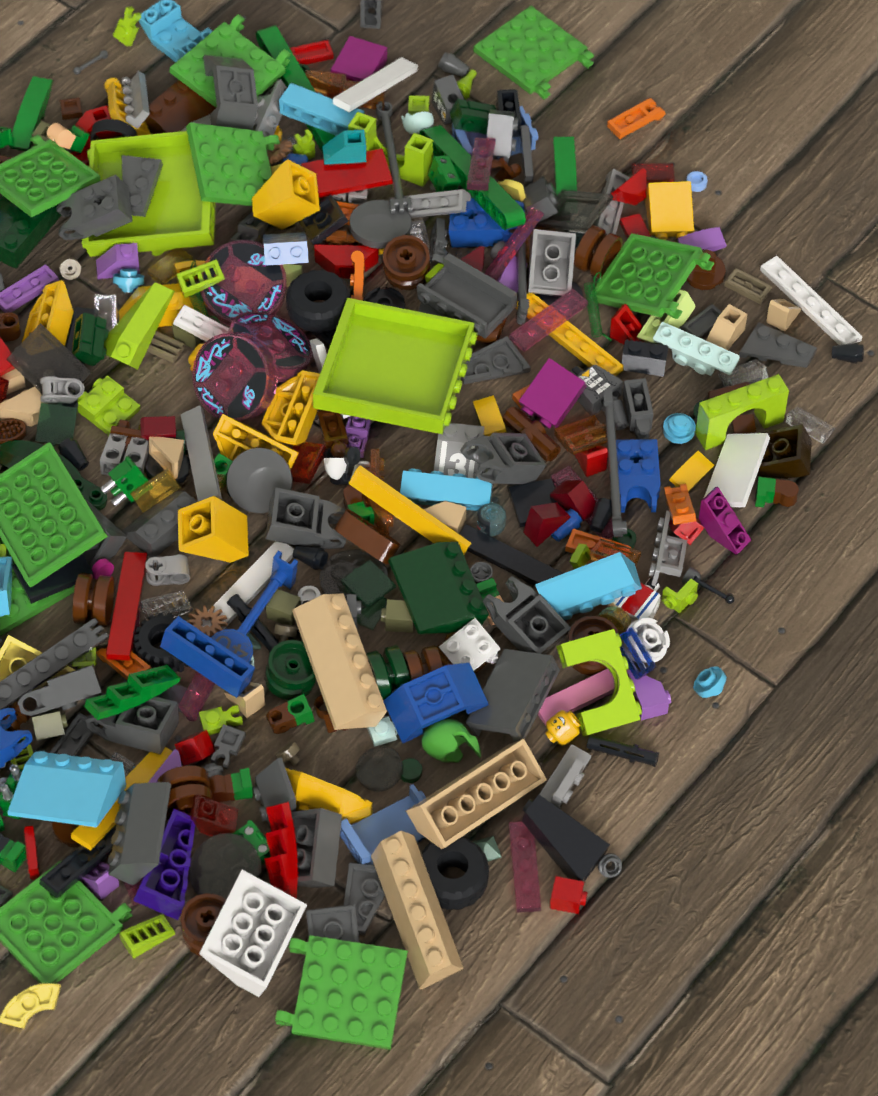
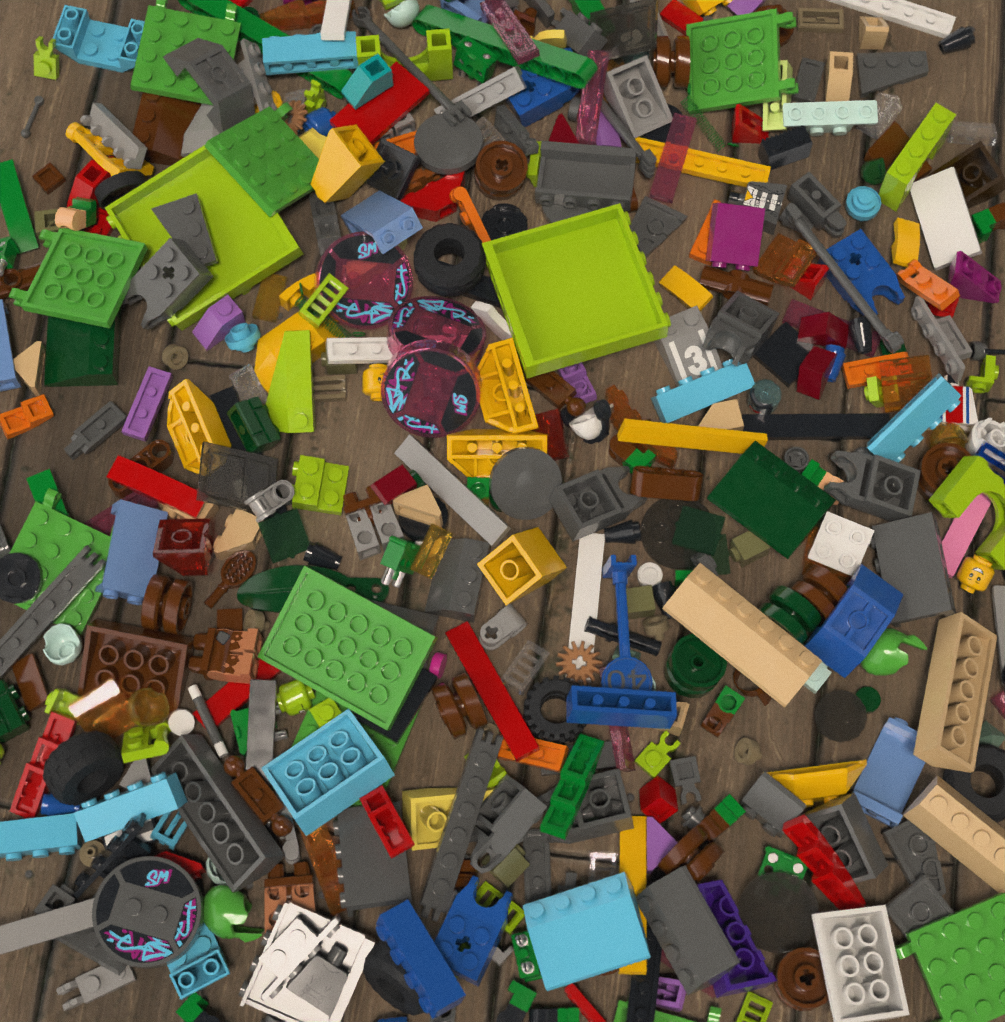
camera: 30 degrees left, 15 degrees up
(213, 817) = (738, 865): clear red slope -> none

